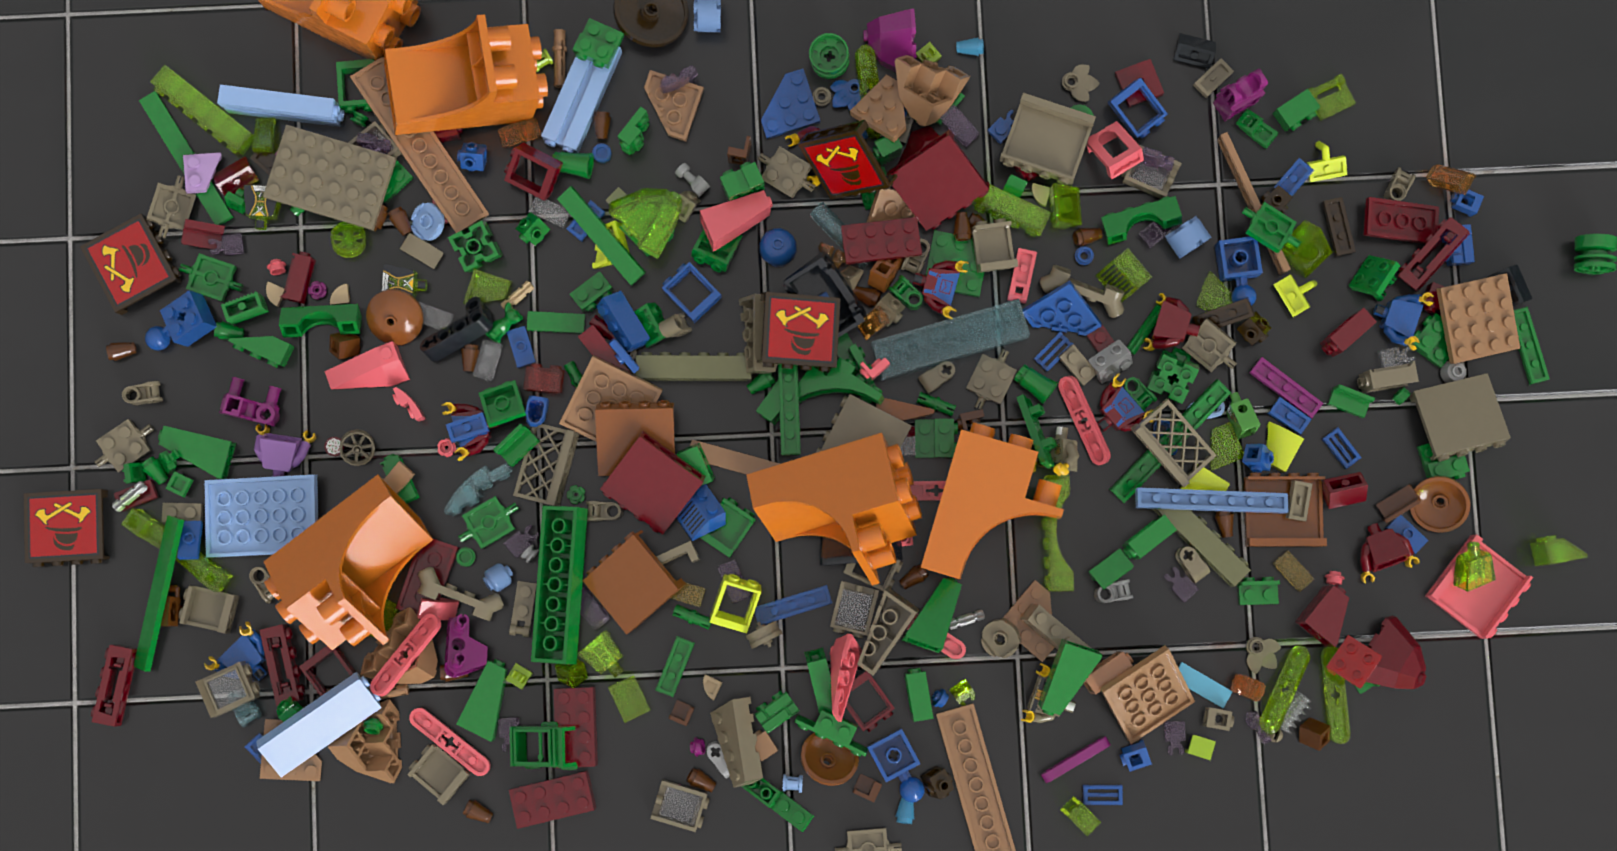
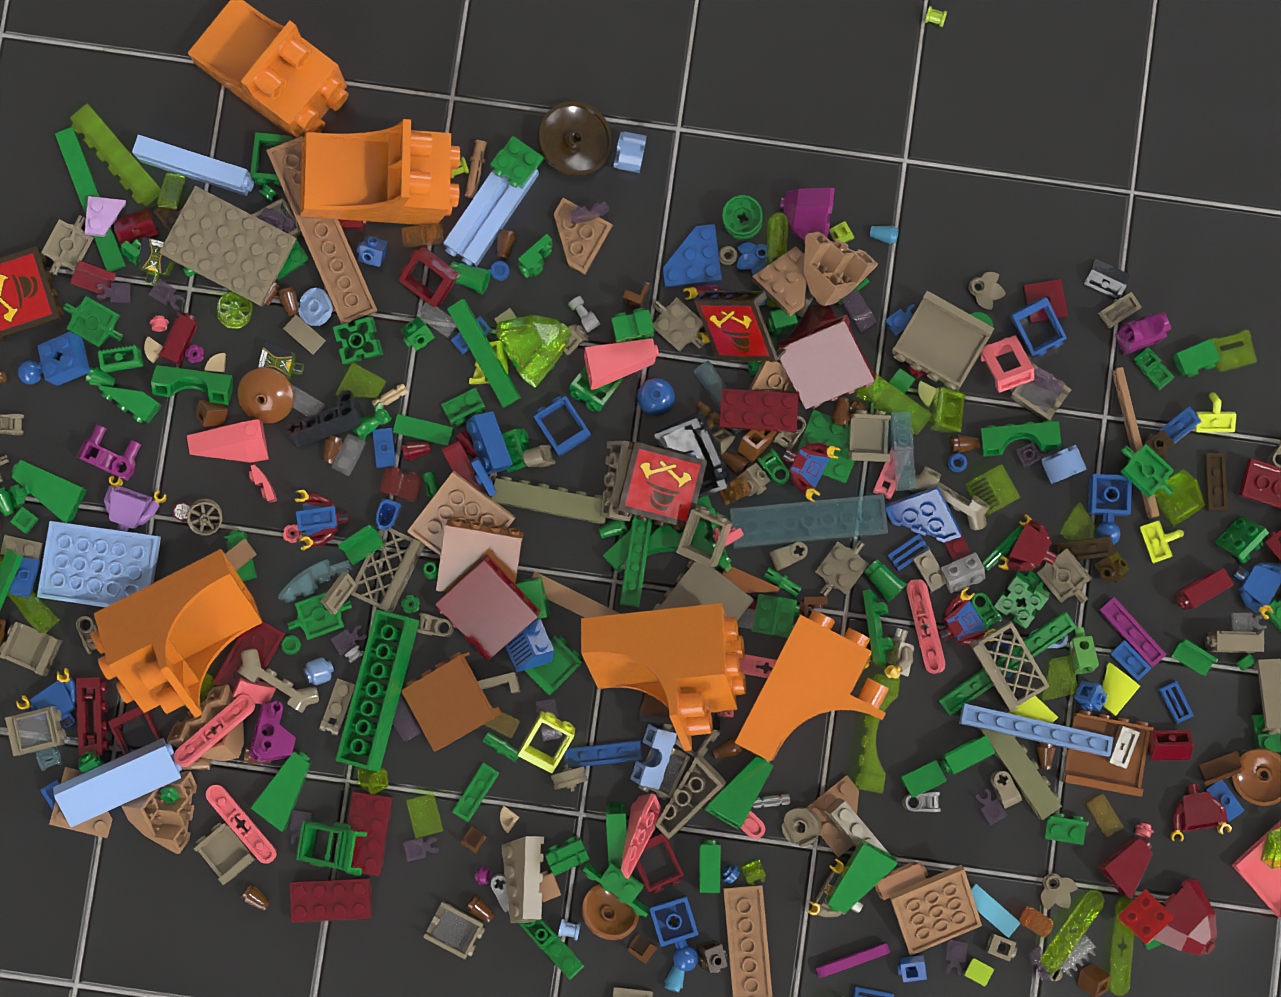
camera: 10 degrees right, 0 degrees up
(277, 236) = (165, 293): none -> clear purple plate
(502, 403) = (355, 501): green plate -> none
(503, 496) = (338, 593): none -> dark tan plate
(519, 676) = (321, 772): lime tile -> none
(551, 343) = (414, 450): none -> dark red cone
(593, 460) = (431, 575): none -> green cone
(603, 654) = (407, 767): clear neon green torso -> none
(627, 732) = (417, 849): none -> clear purple plate
(844, 612) = (652, 771): none -> medium blue arch
(847, 391) = (696, 554): none -> dark tan window
(1029, 253) = (903, 451): none -> clear light blue slope

